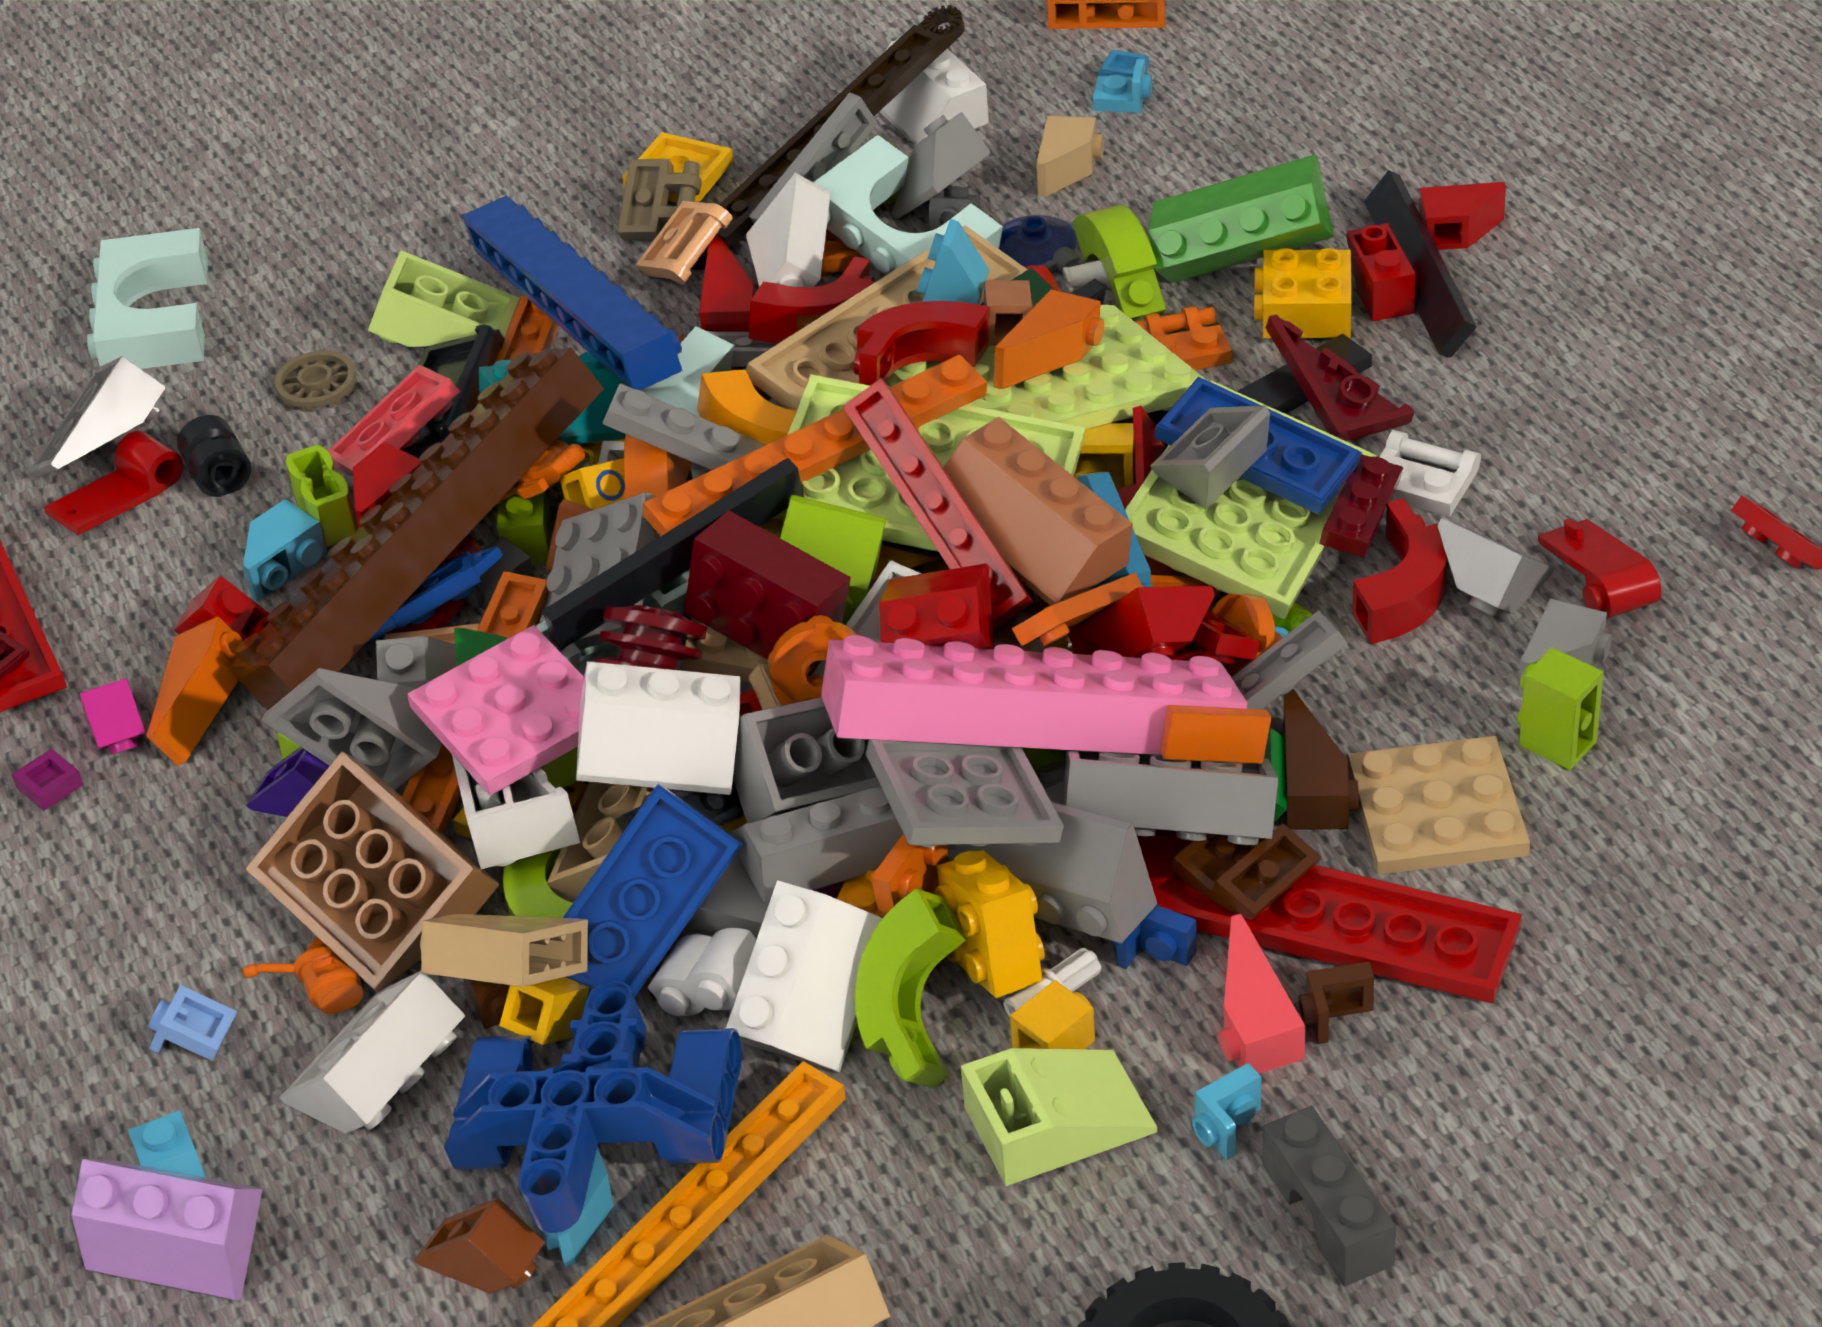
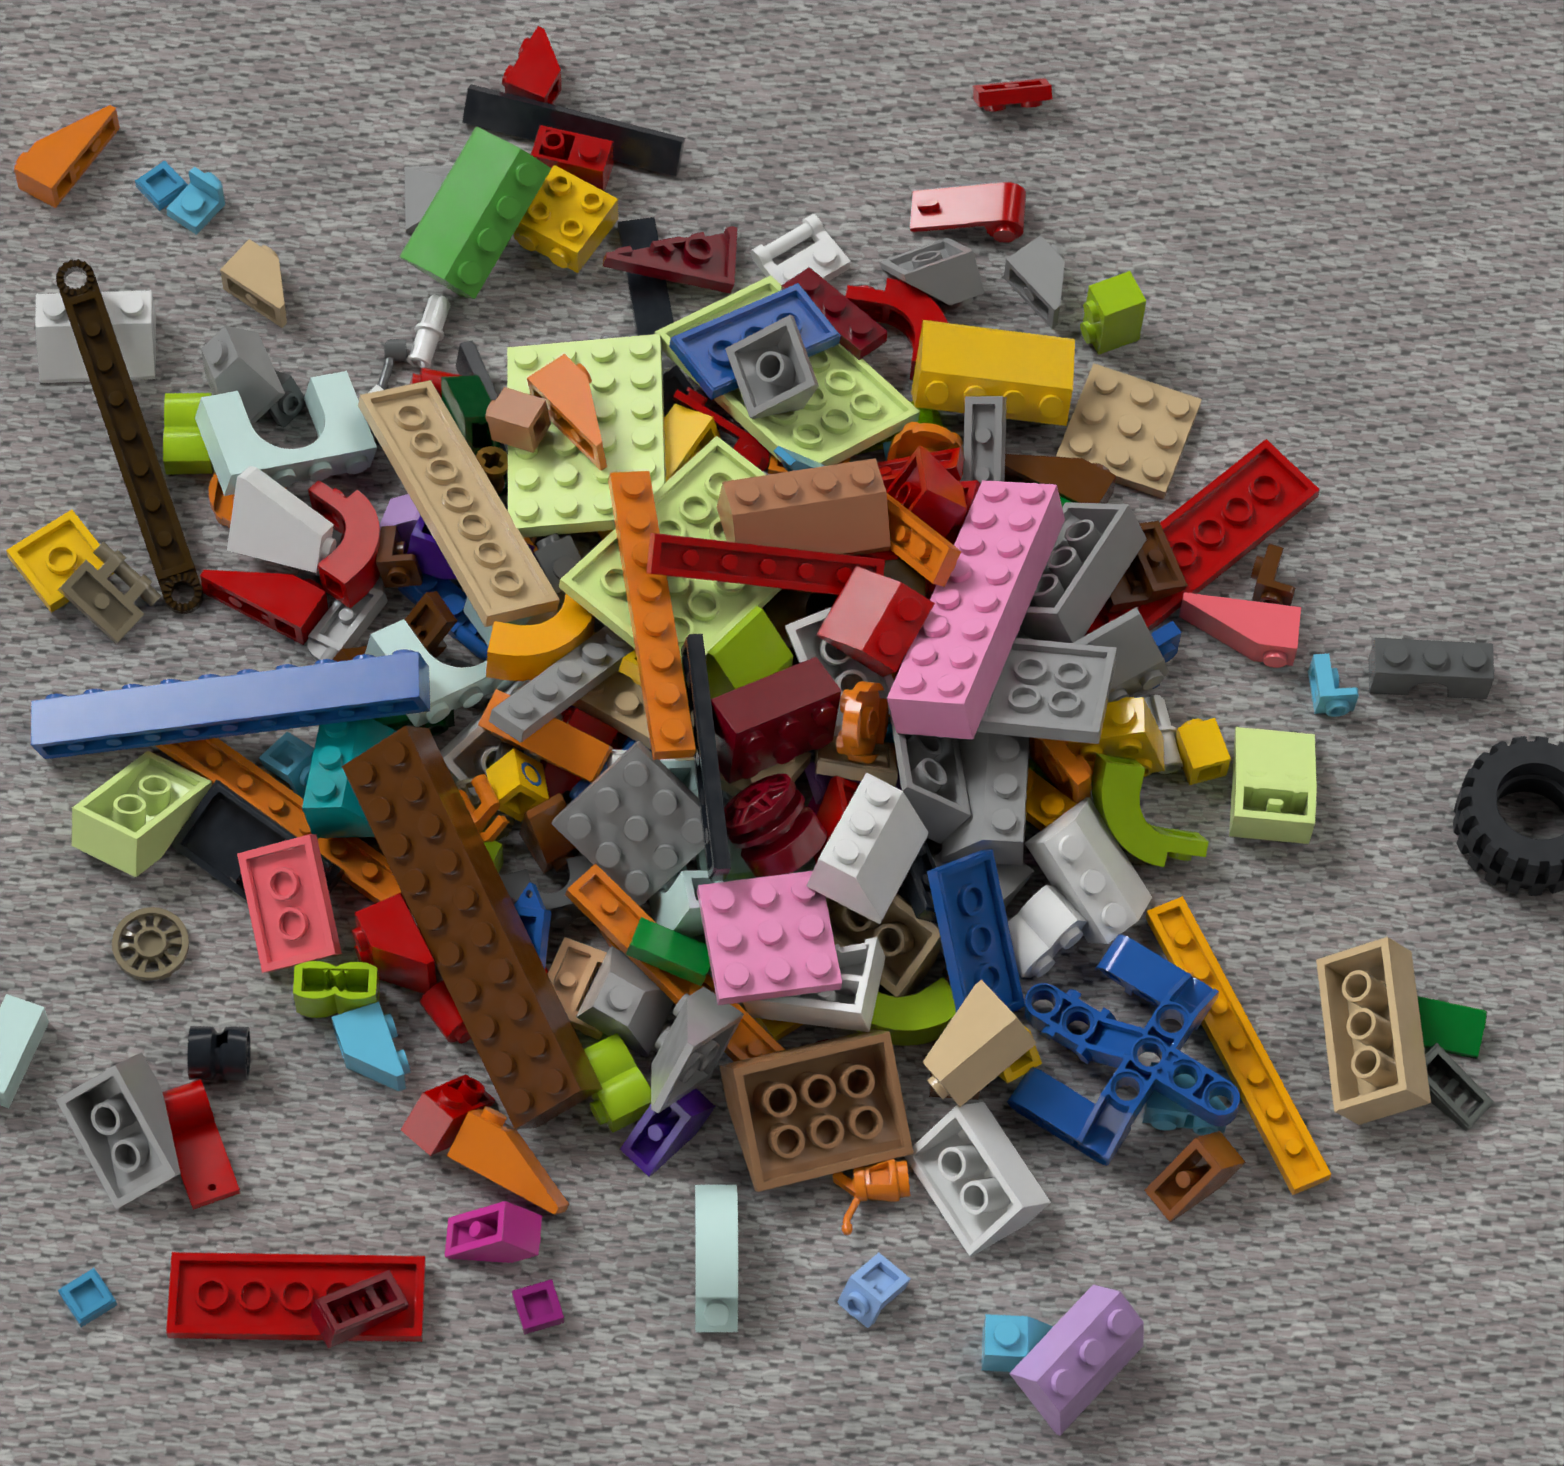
camera: 70 degrees left, 20 degrees up
(160, 859) = (716, 1258): none -> light aqua arch
(683, 240) = (178, 603): light nougat plate -> none
(829, 146) = (169, 448): light grey plate -> none
(920, 334) = (519, 478): red arch -> none
(957, 270) = (459, 437): medium azure slope -> none
(1036, 238) = (360, 360): clear blue dish -> none
(1126, 255) = (430, 304): lime arch -> none
(1197, 345) = (558, 319): orange plate -> none
(1215, 734) = (1062, 519): orange tile -> none
(1398, 647) = (978, 361): none -> yellow slope

